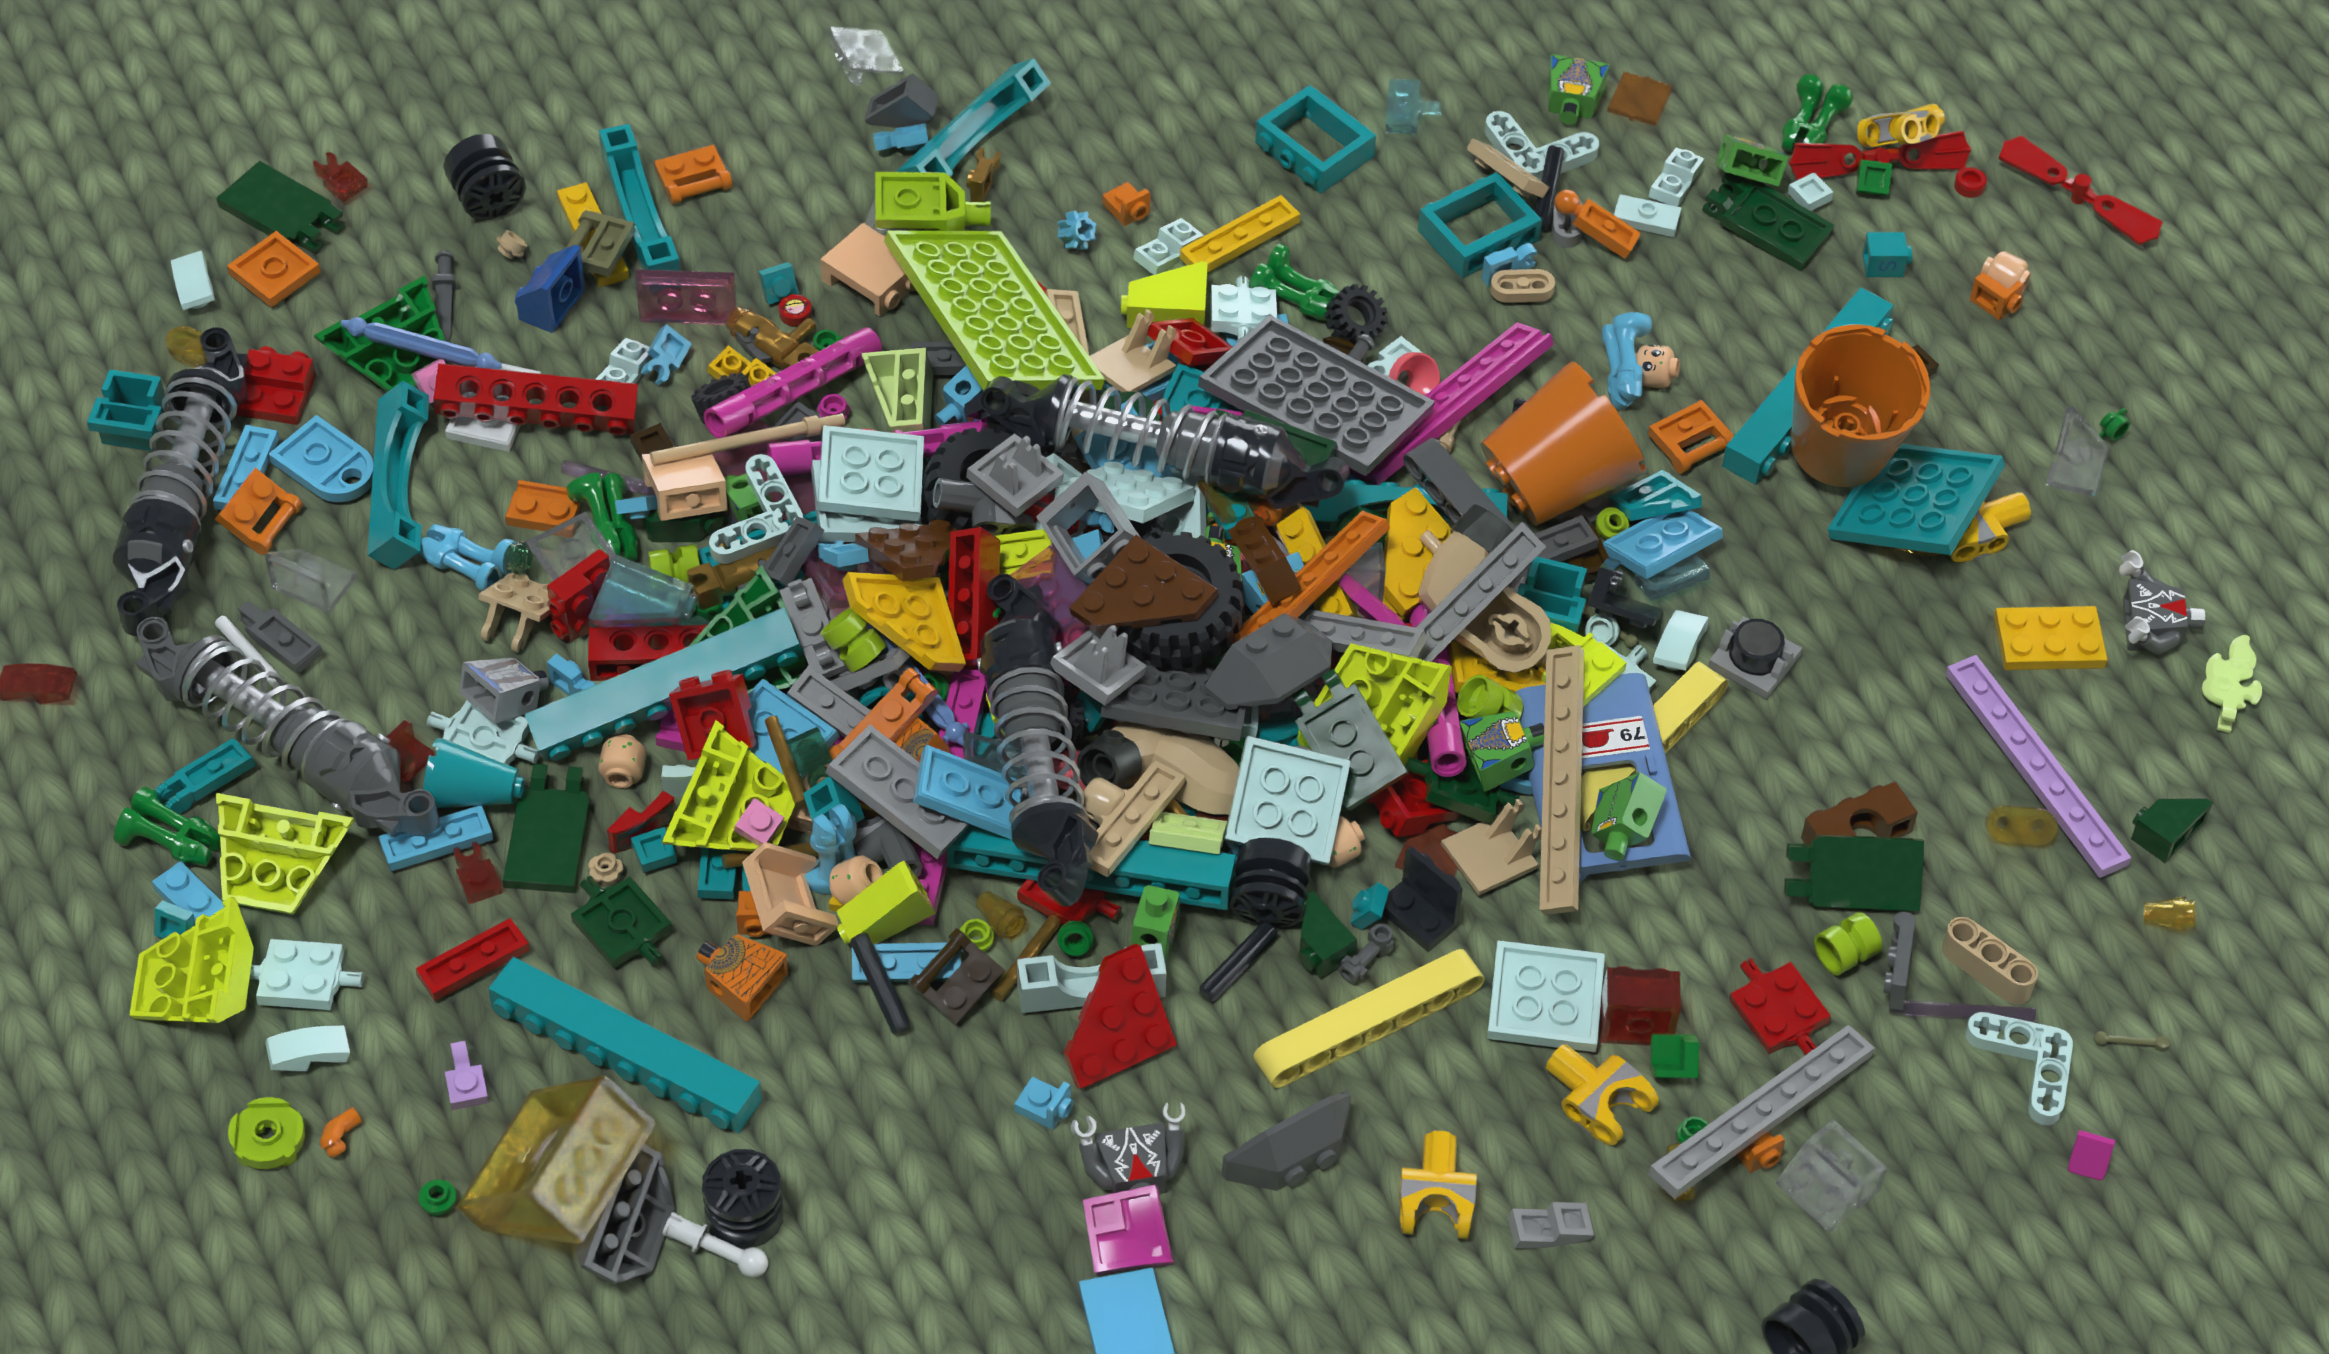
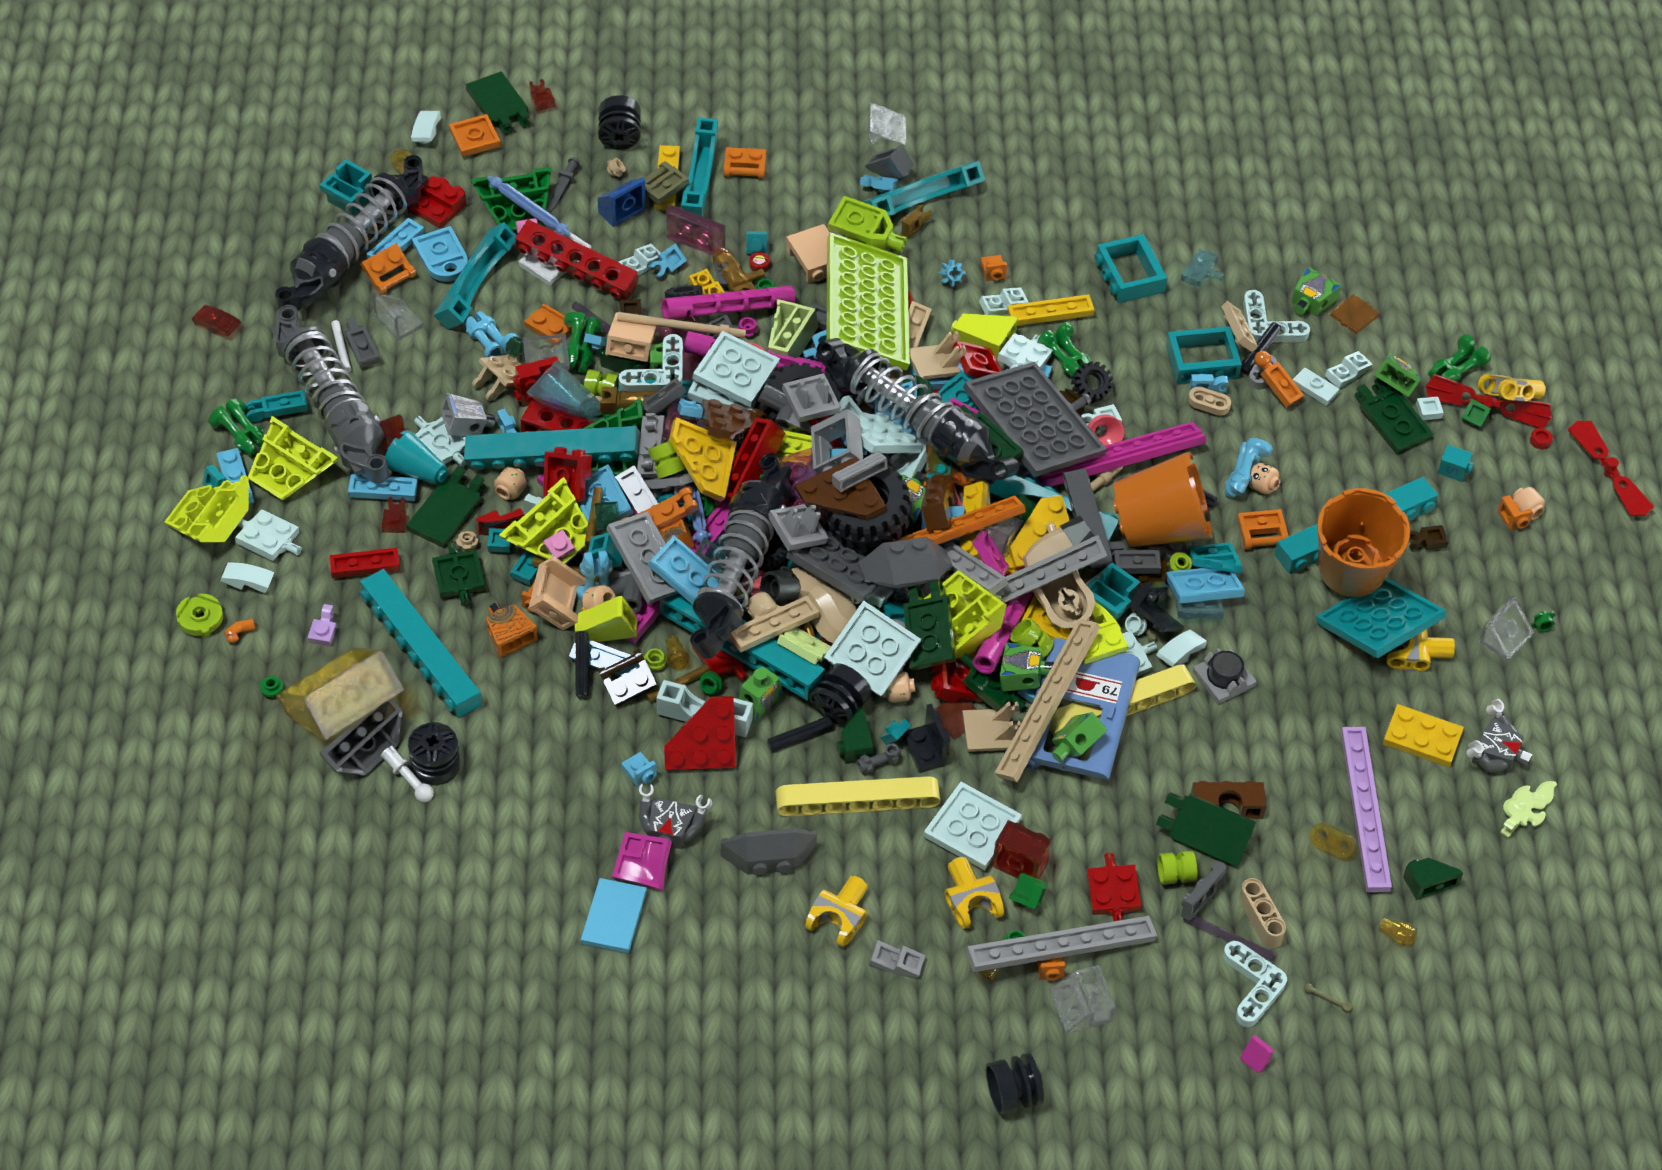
camera: 25 degrees right, 0 degrees up
(1157, 553) = (859, 471): none -> light grey piece

